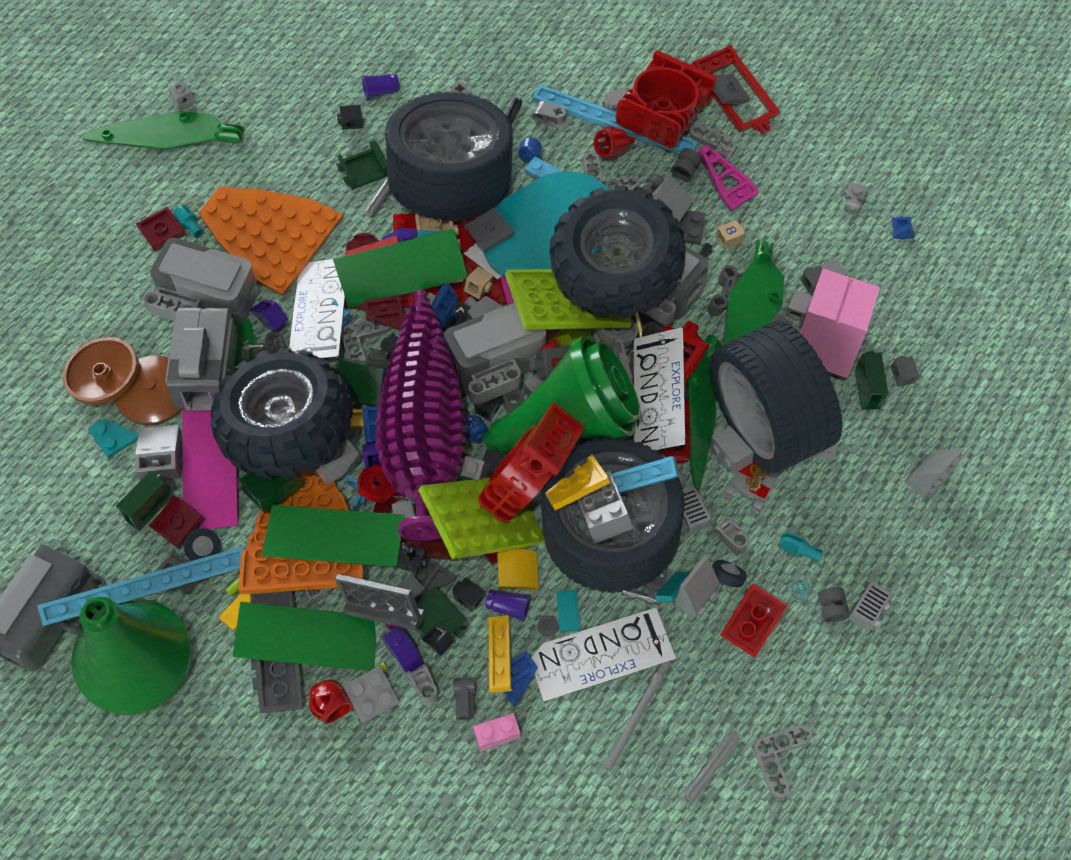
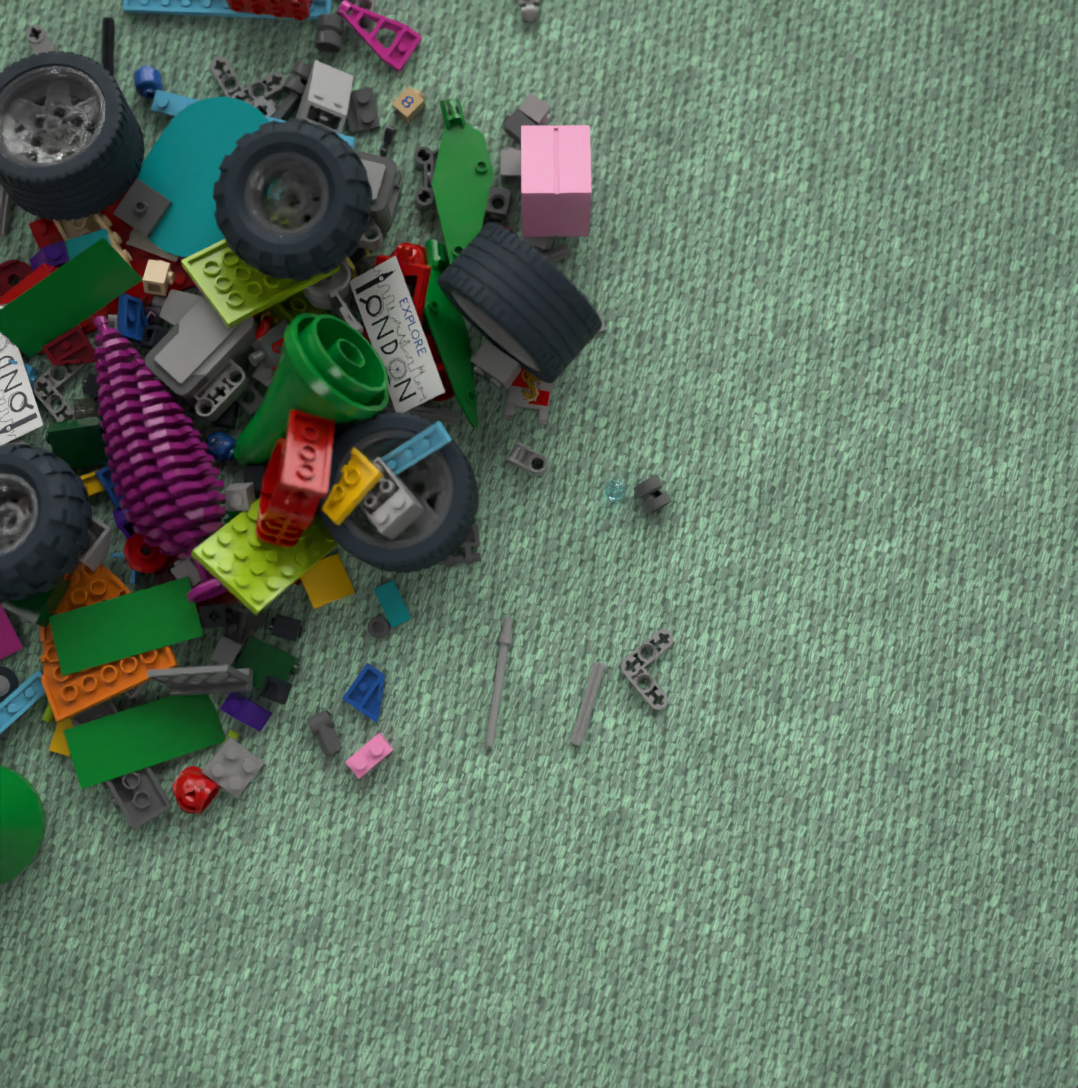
camera: 20 degrees left, 20 degrees up
(422, 681) = (277, 732): light grey piece -> none
(499, 654) = (342, 678): yellow plate -> none
(509, 603) = (331, 621): dark purple plant -> none
(548, 113) = (151, 25): light grey piece -> none
(601, 654) = (442, 634): white sticker -> none
(616, 141) = (240, 32): red helmet -> none
(670, 589) = (488, 539): teal tile -> none
(695, 515) = (478, 448): light grey brick -> none
(698, 589) = (513, 535): light grey slope -> none
(729, 573) = (538, 503): black wheel -> none
(754, 619) = (580, 540): red slope -> none
(798, 546) = (599, 444): teal arm -> none
(870, 606) = (689, 481): light grey brick -> none
(871, 381) = (614, 229): dark green brick -> none
(902, 228) = (593, 20): blue tile -> none
(904, 371) = (646, 200): dark grey brick -> none
(934, 471) = (709, 309): light grey slope -> none

